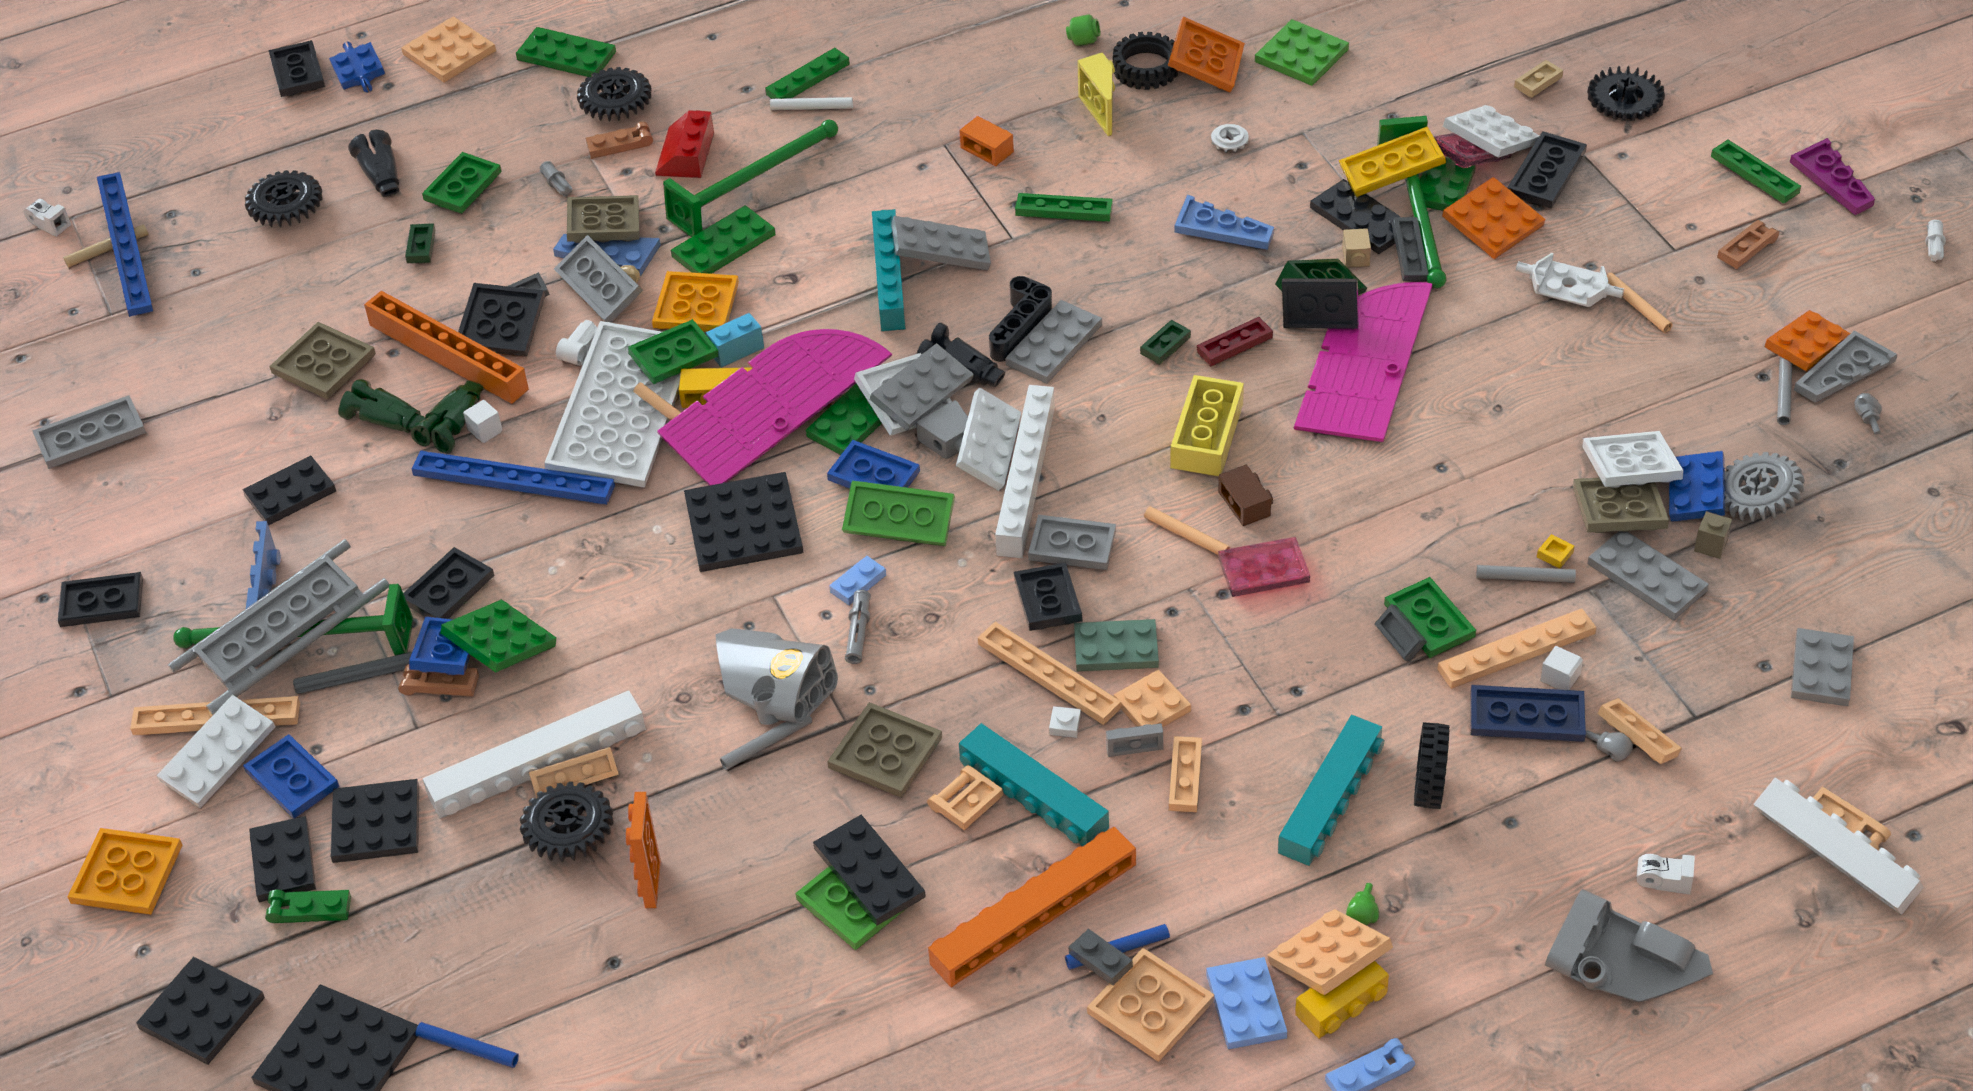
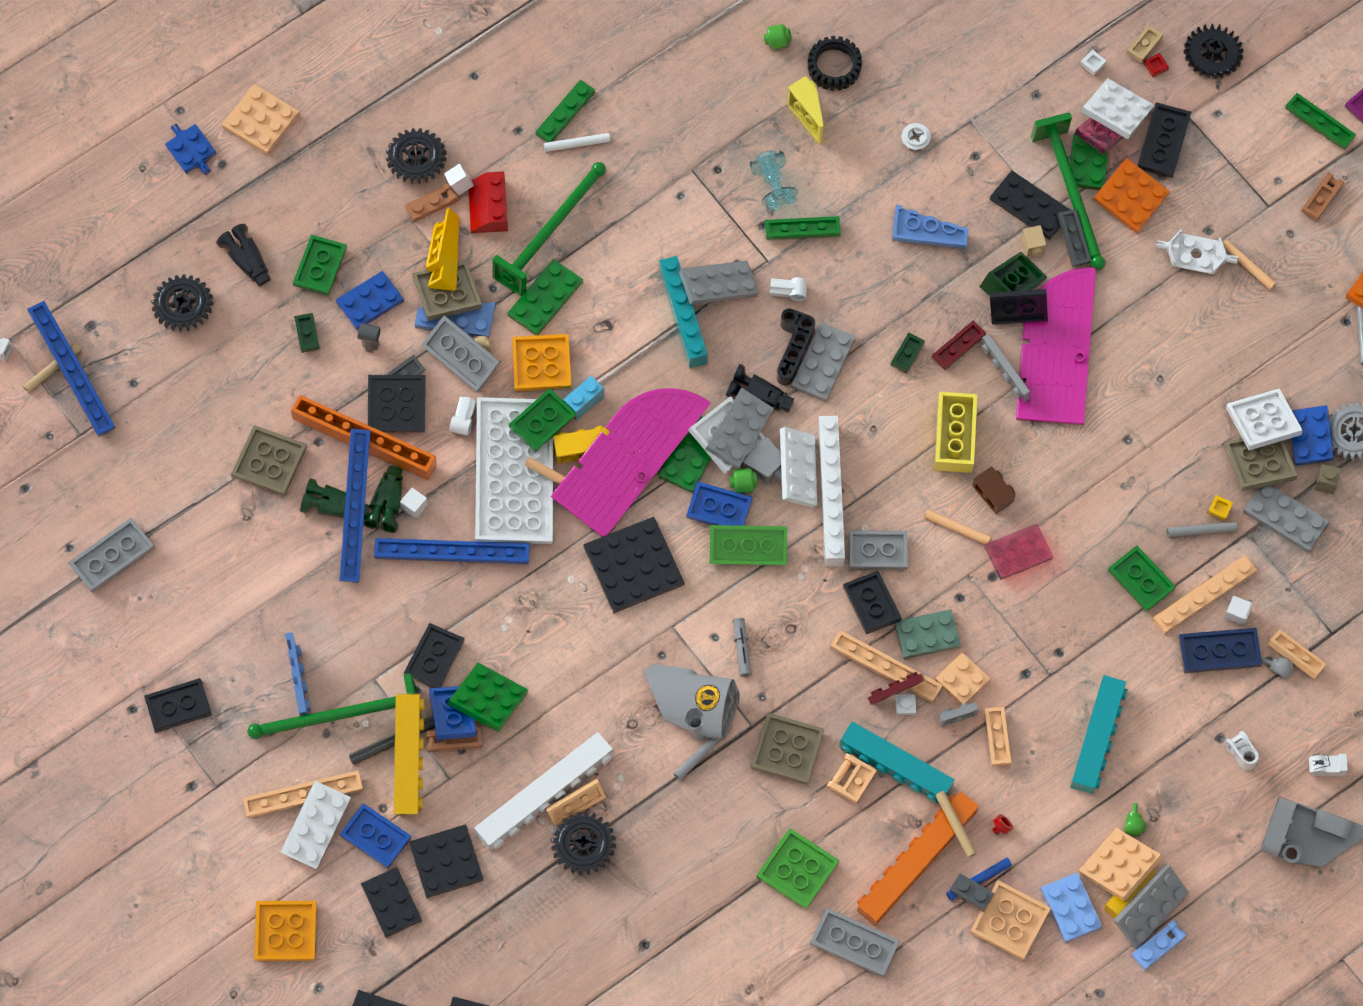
camera: 15 degrees left, 20 degrees up
(277, 620) = (326, 714): light grey piece -> none
(289, 490) = (284, 586): black plate -> none
(296, 68) = (141, 159): black plate -> none
(308, 906) = (423, 936): green plate -> none
(362, 676) = (407, 753): none -> yellow brick
(403, 410) = (354, 505): none -> blue plate
(491, 248) = (370, 336): none -> dark grey piece
(509, 223) = (369, 300): none -> blue plate
(555, 178) = (394, 250): light grey axle -> none
(565, 52) = (359, 110): green plate -> none
(613, 183) = (443, 253): none -> yellow wedge
(644, 849) = (652, 868): orange plate -> none
(656, 118) = (459, 179): none -> white piece
(859, 577) = (731, 605): light blue plate -> none
(869, 869) = (802, 850): black plate -> none
(913, 445) = (743, 480): none -> bright green head
(914, 1000) = (854, 942): none -> light grey plate
(986, 141) = (727, 166): orange brick -> none
(1035, 264) = (794, 289): none -> white piece
(1036, 141) = (769, 166): none -> clear light blue piece
(1053, 694) = (896, 687): none -> dark red plate
(1096, 863) = (956, 824): none -> tan piece
(1166, 881) = (1002, 824): none -> red tile
(1206, 54) = (883, 55): orange plate -> none
(1293, 373) = (1009, 374): none -> light grey plate
(1301, 52) = (954, 35): bright green plate -> none
(1365, 1012) = (1151, 906): none -> light grey plate
(1392, 161) = (1048, 155): yellow tile -> none
(1400, 632) = (1124, 595): dark grey tile -> none
(1431, 765) = (1165, 712): black tyre -> none
(1469, 89) = (1093, 62): none -> white plate
(1540, 838) = (1241, 747): none -> white piece
(1550, 101) = (1156, 65): none -> red tile

